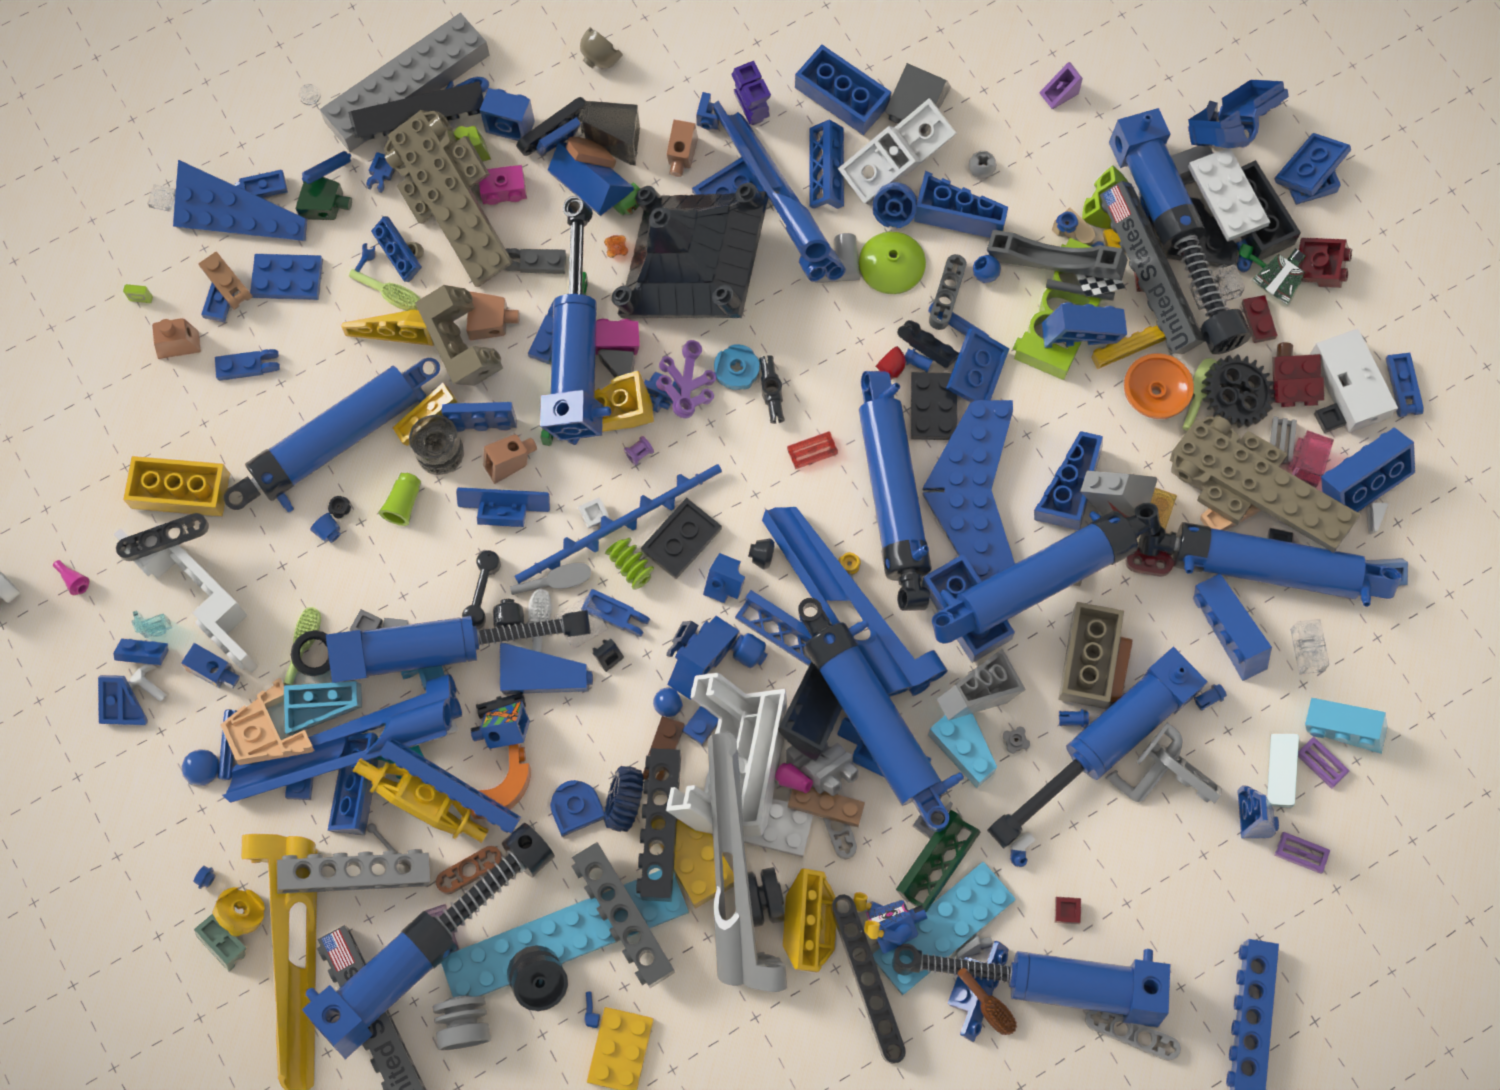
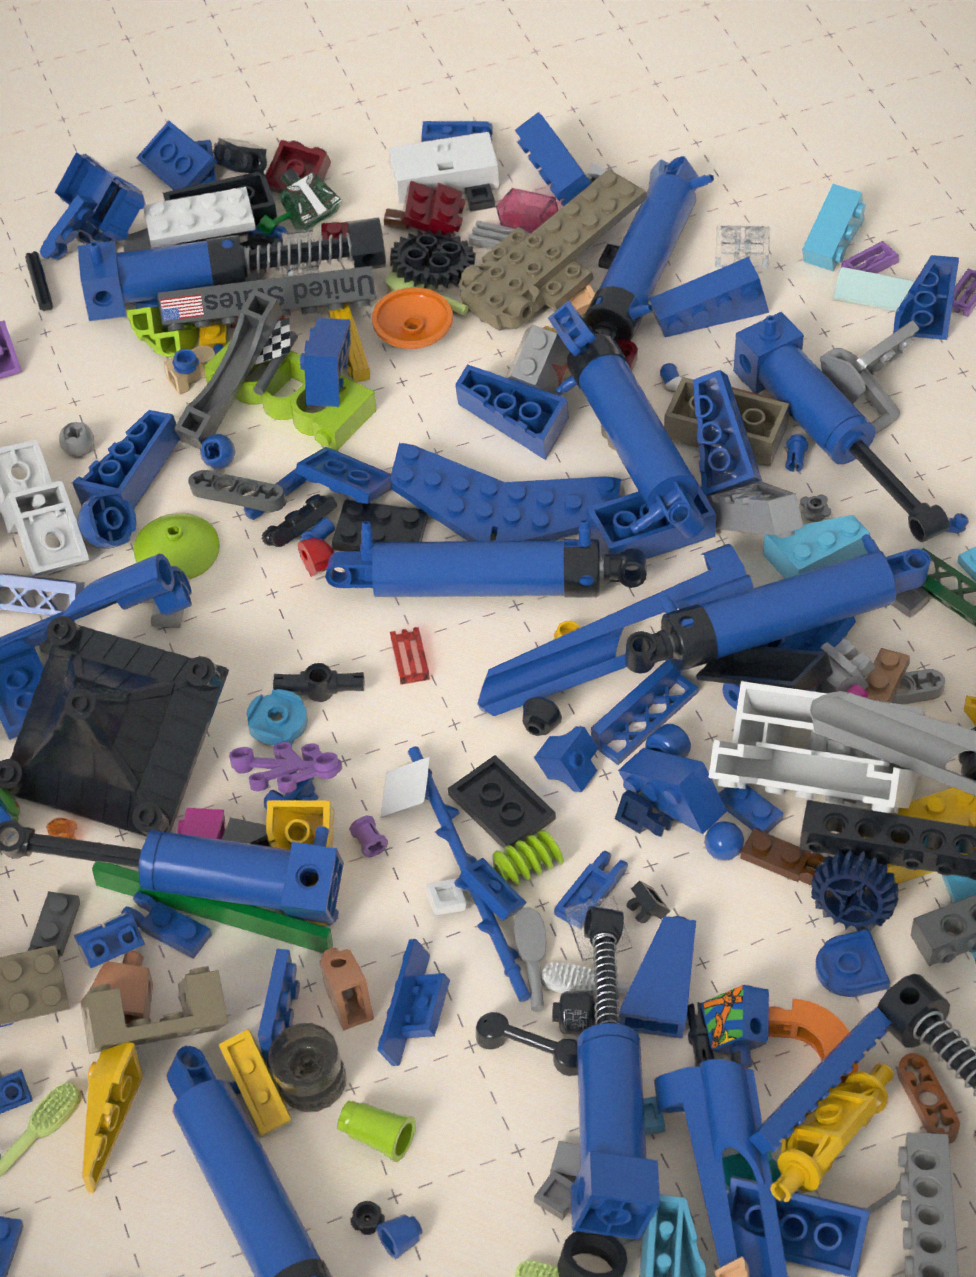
camera: 80 degrees left, 20 degrees down
(524, 297) = (107, 943): none -> blue hips
(596, 541) = (492, 889): none -> blue plate
(684, 467) = (405, 787): none -> white sticker
(1052, 649) = (722, 437): none -> blue wedge
(1132, 506) = (571, 328): none -> blue plate
(1144, 604) = (670, 376): none -> blue arm
(1151, 95) = (39, 281): none -> black axle
(1199, 98) = (67, 227): none -> blue hinge
(1321, 211) = (240, 155): none -> black hinge

